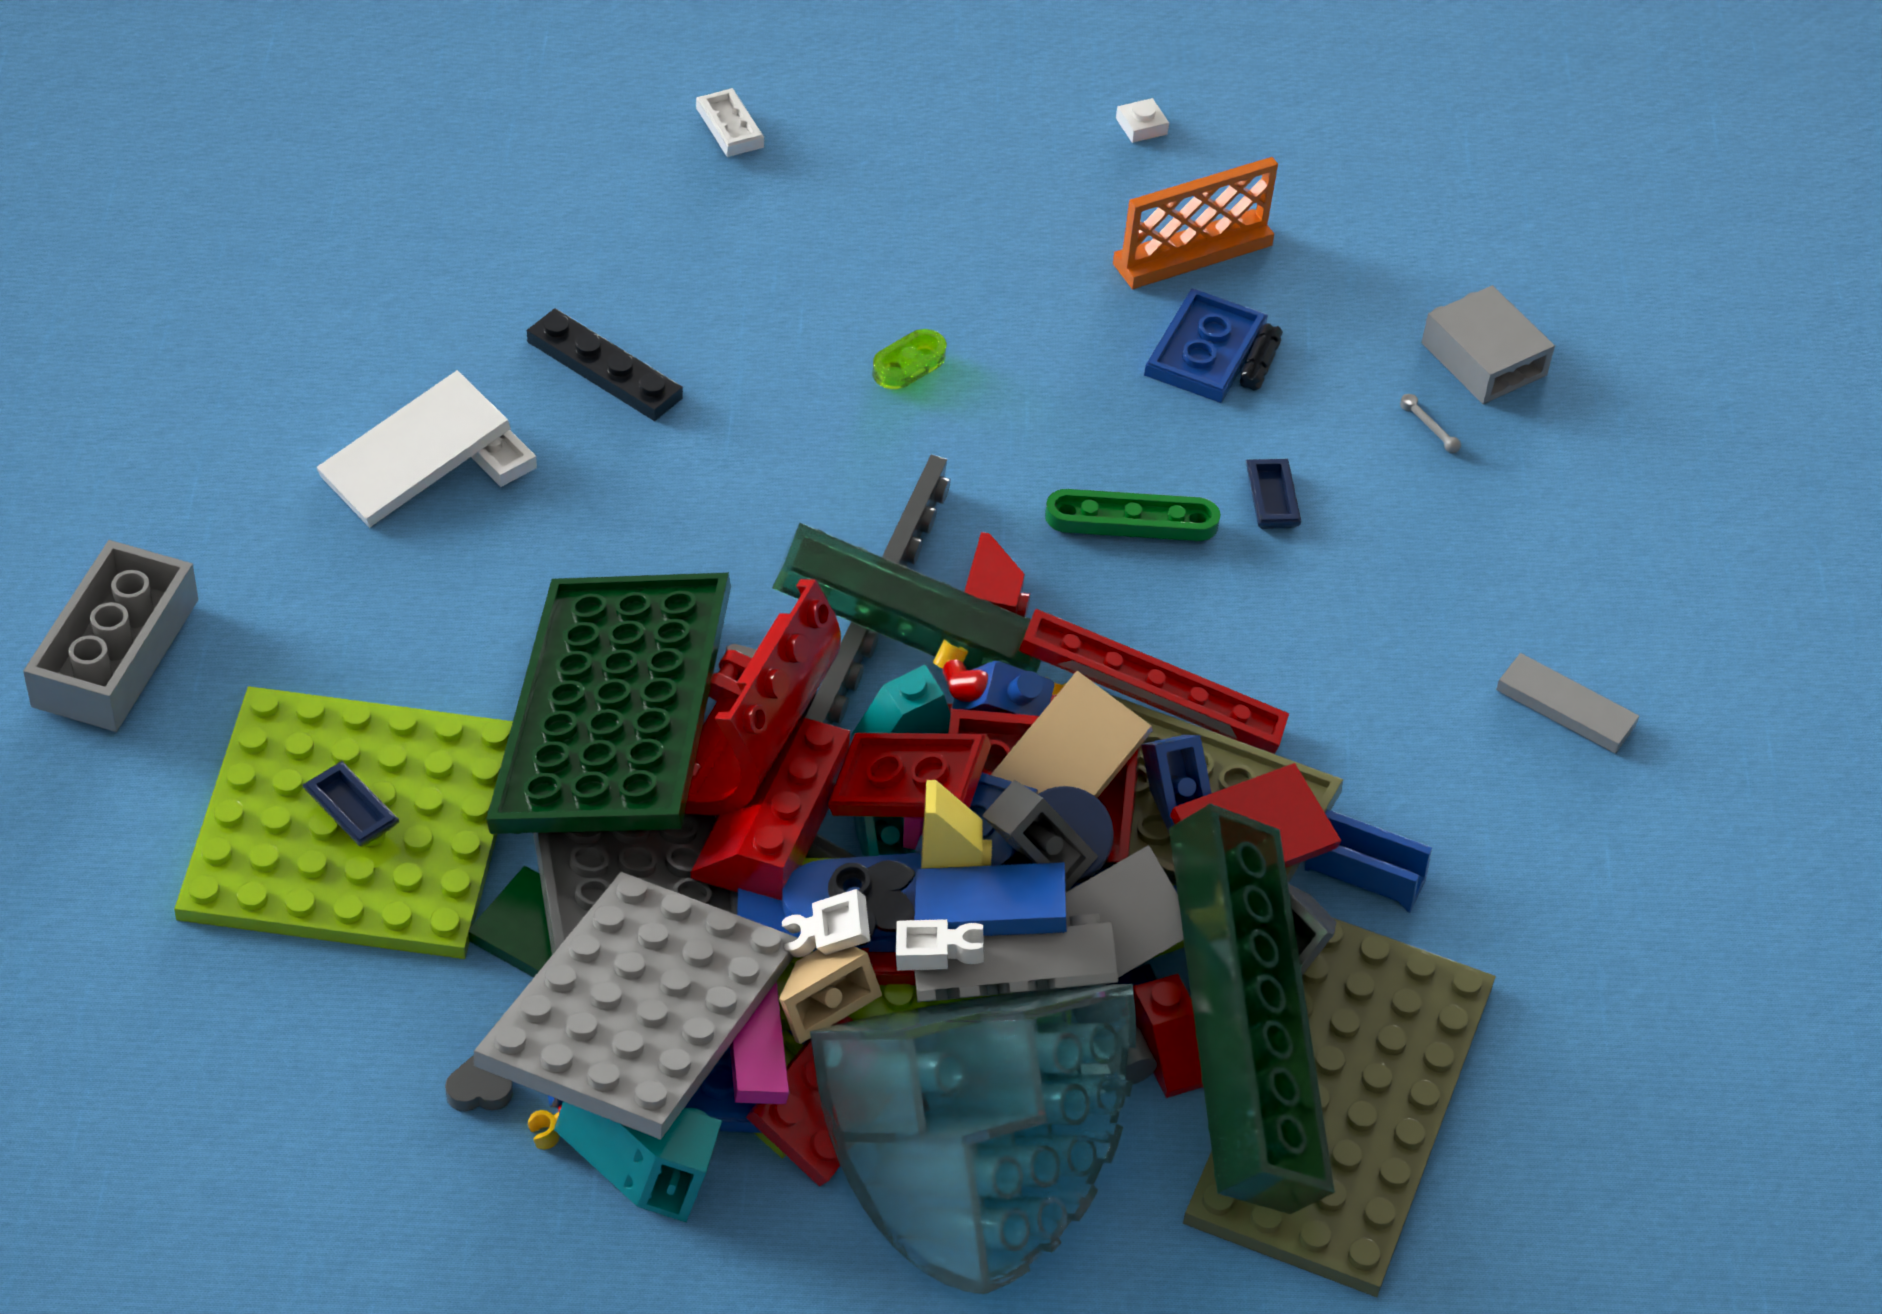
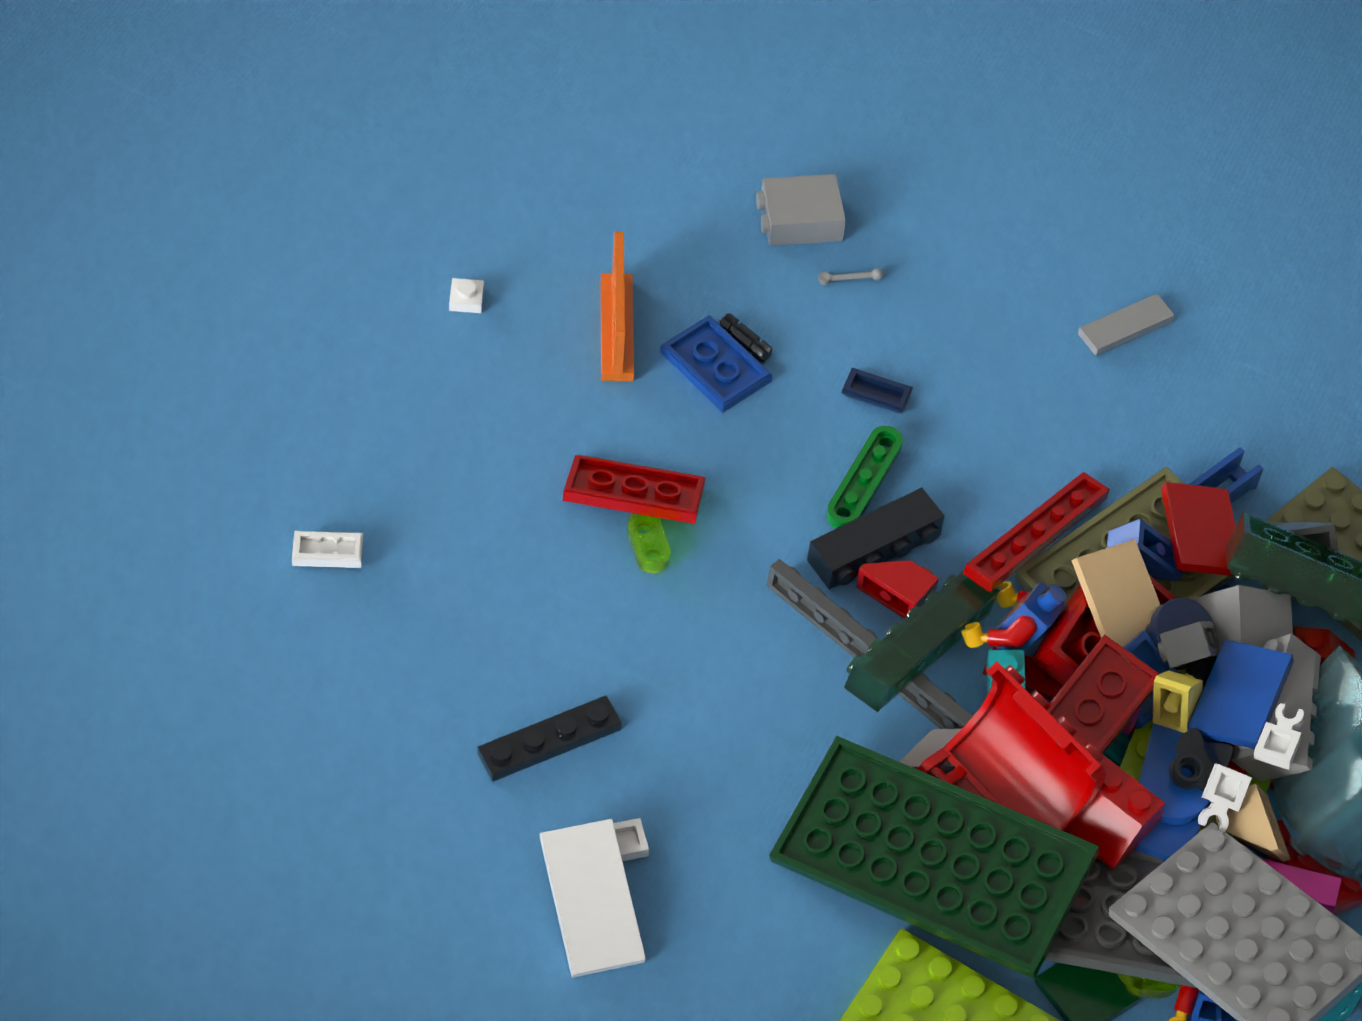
camera: 65 degrees left, 5 degrees up
(971, 324) = (634, 489): none -> red tile
(1051, 546) = (875, 538): none -> black brick

